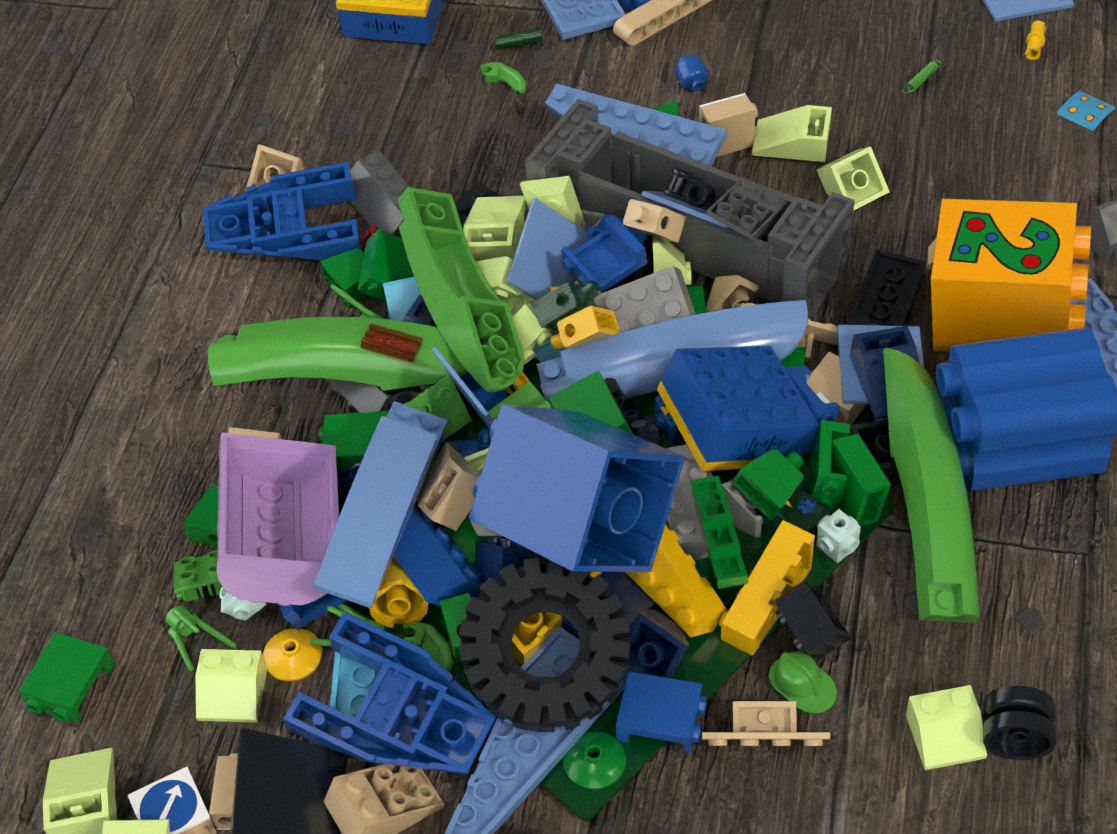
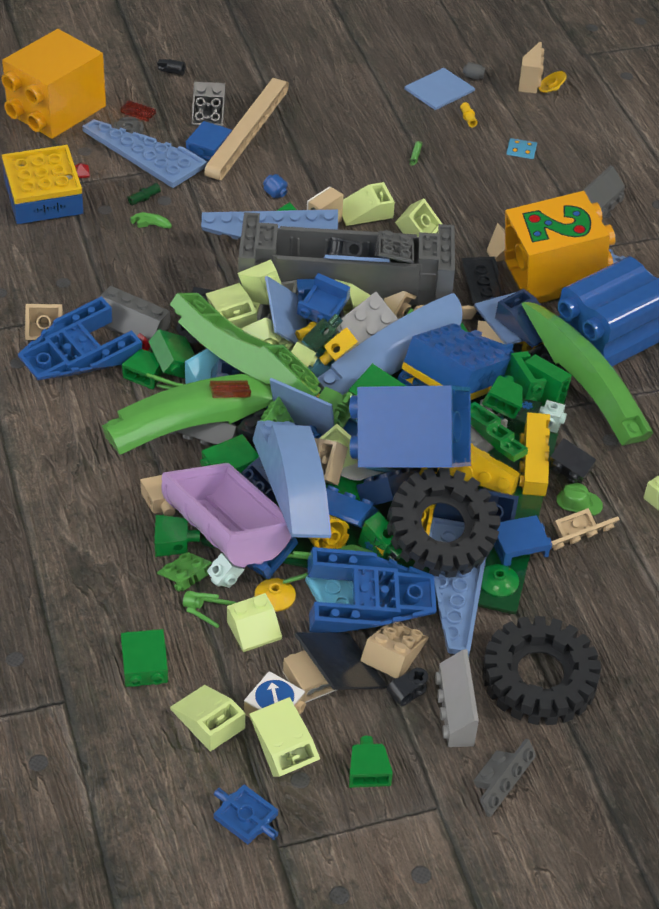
camera: 35 degrees left, 5 degrees down
(647, 219) = (343, 269): tan torso -> none

